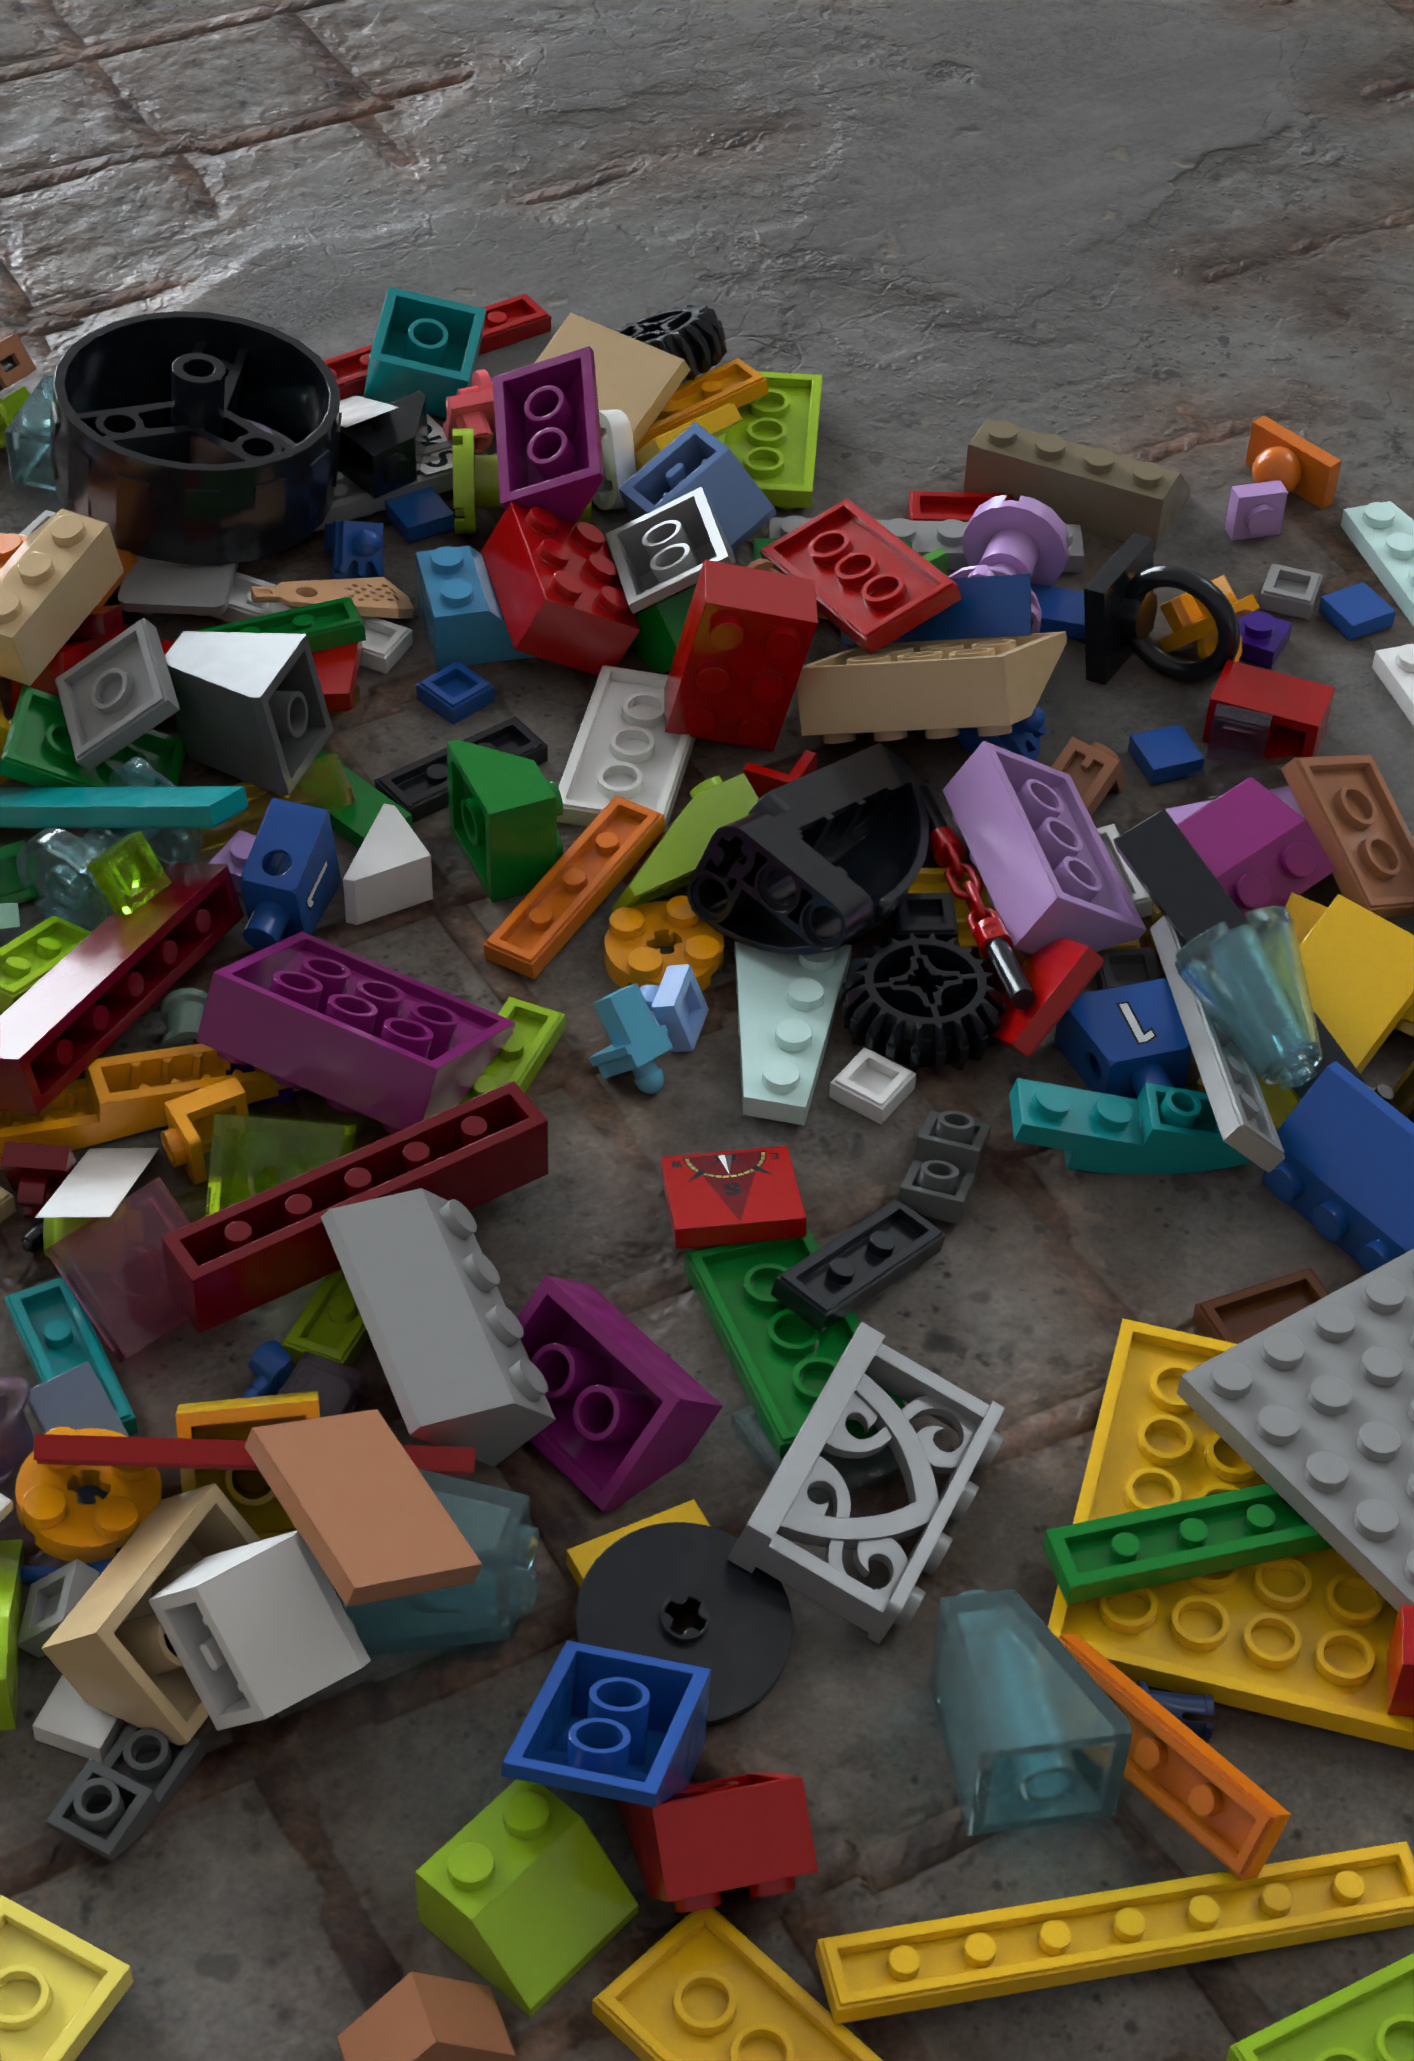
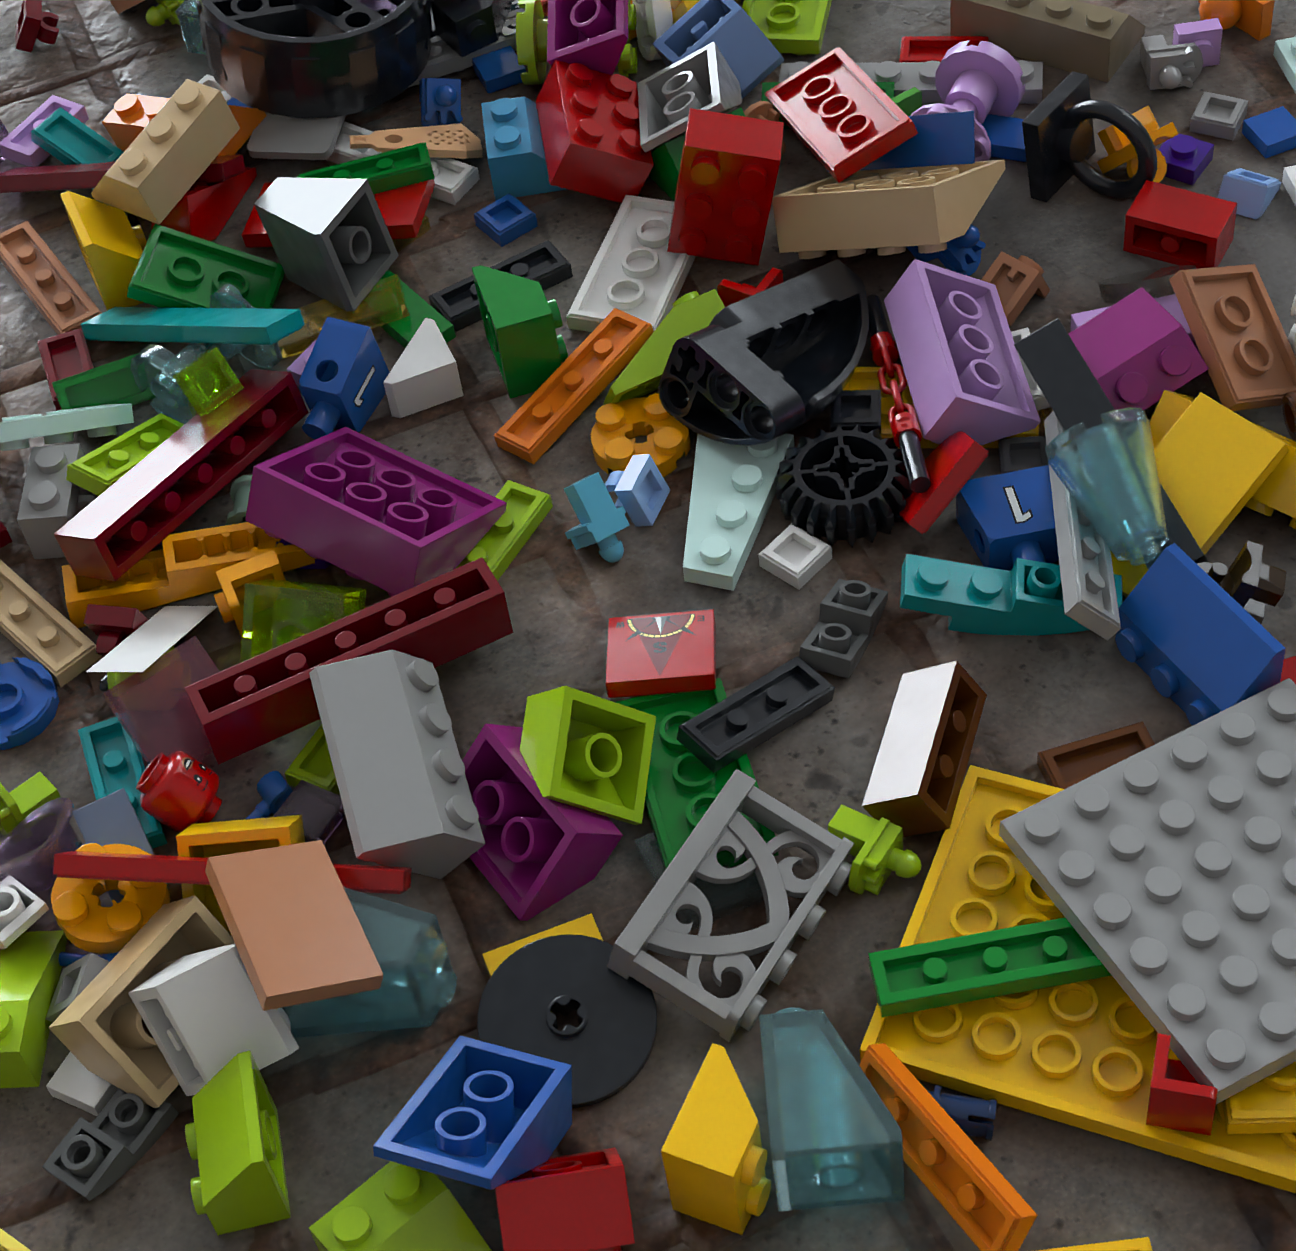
camera: 15 degrees right, 5 degrees up
(116, 694) = (221, 230): light grey tile -> none
(155, 1365) = (179, 790): none -> red head
(300, 1787) = (237, 1150): none -> lime slope
(673, 1305) = (588, 752): none -> lime slope
(904, 1761) = (716, 1150): none -> yellow slope
(1026, 1416) = (876, 849): none -> lime piece
(1068, 1303) = (925, 749): none -> reddish brown brick
(1165, 754) = (1087, 263): blue tile -> none
(1228, 532) = (1171, 64): none -> light grey piece
(1238, 734) = (1150, 245): tile -> none
(1340, 672) = (1249, 190): none -> light blue slope

